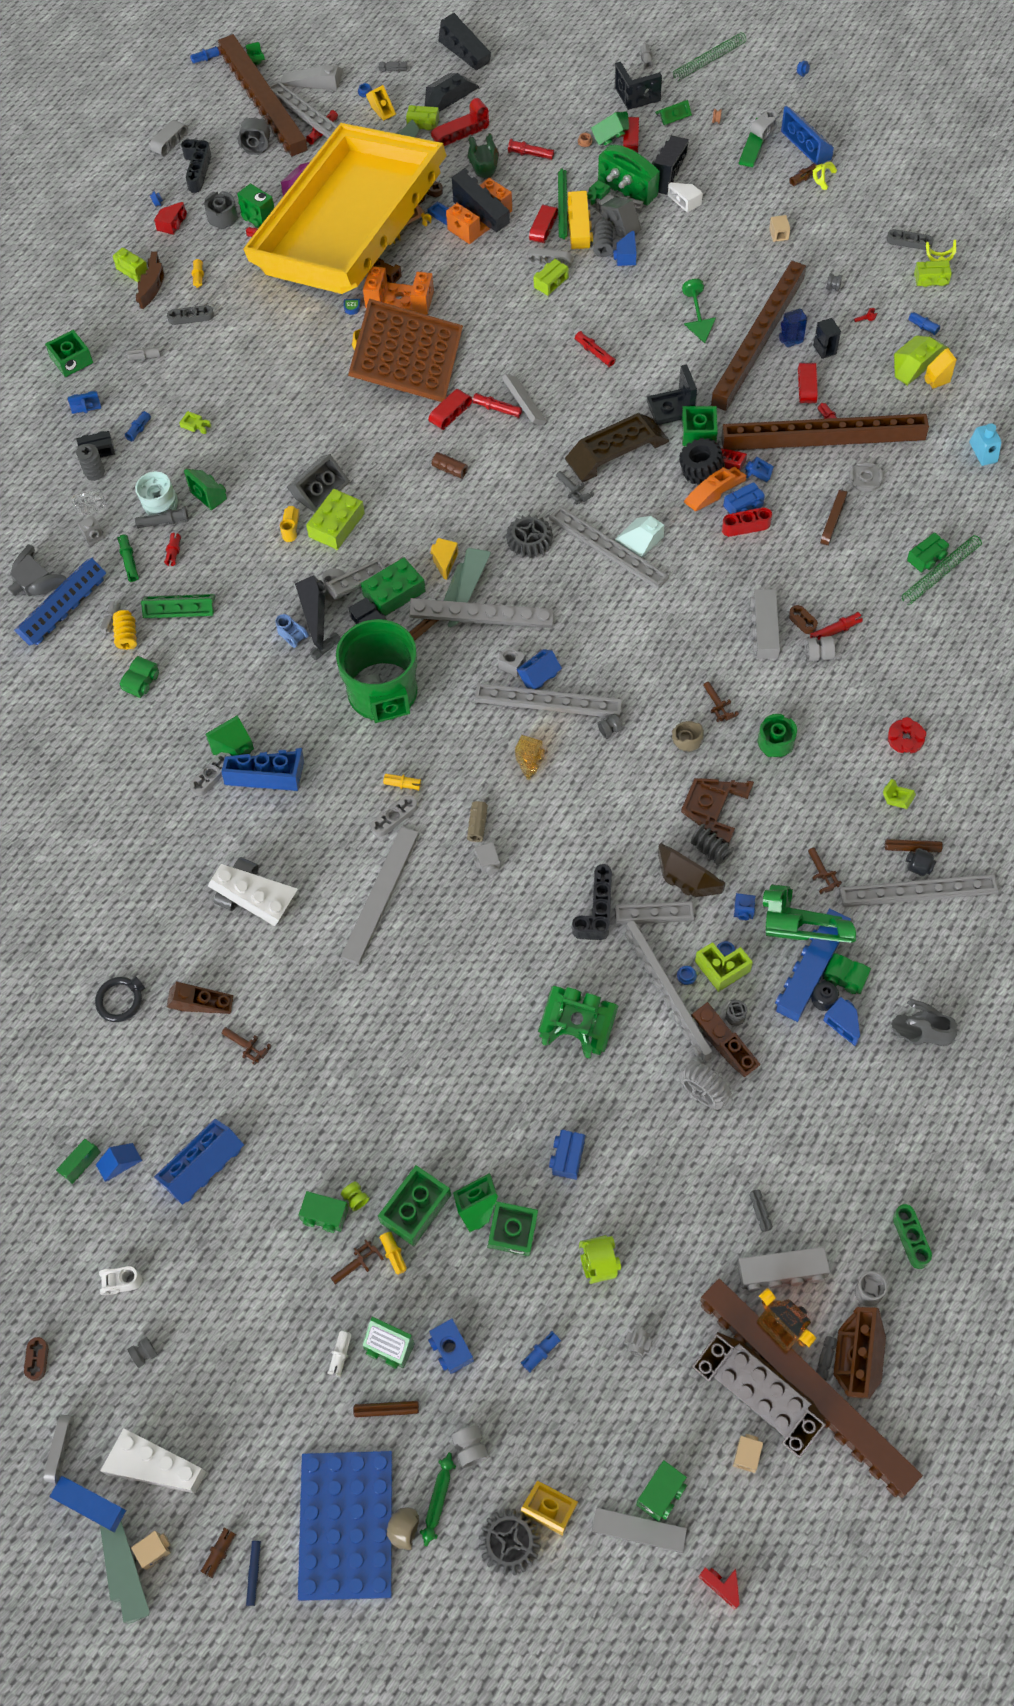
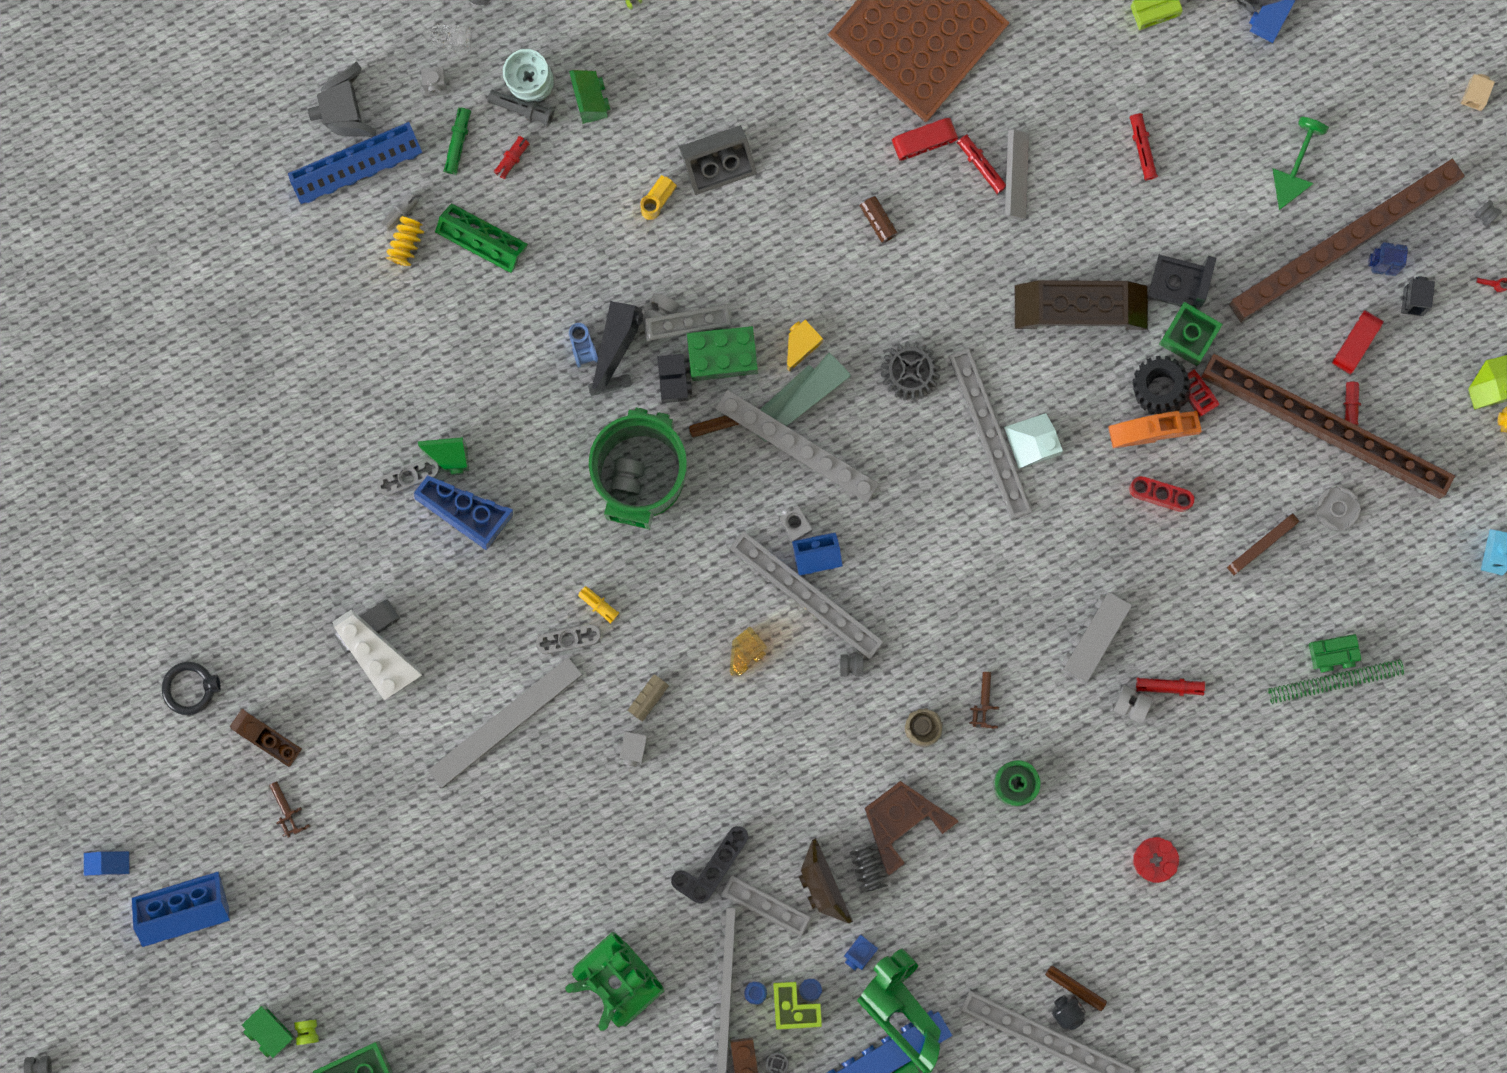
camera: 30 degrees right, 20 degrees up
(78, 1161) = (68, 840): green panel -> none
(115, 1280) = (46, 984): white piece -> none
(139, 677) = (392, 311): green brick -> none
(335, 519) = (709, 223): lime brick -> none
(574, 489) = (999, 327): dark grey piece -> none
(744, 499) = (1177, 464): blue brick -> none
(759, 469) = (1221, 430): blue bracket -> none
(805, 617) = (1136, 655): reddish brown beam -> none
(823, 873) = (964, 960): reddish brown piece -> none
(897, 795) = (1098, 925): lime bracket -> none

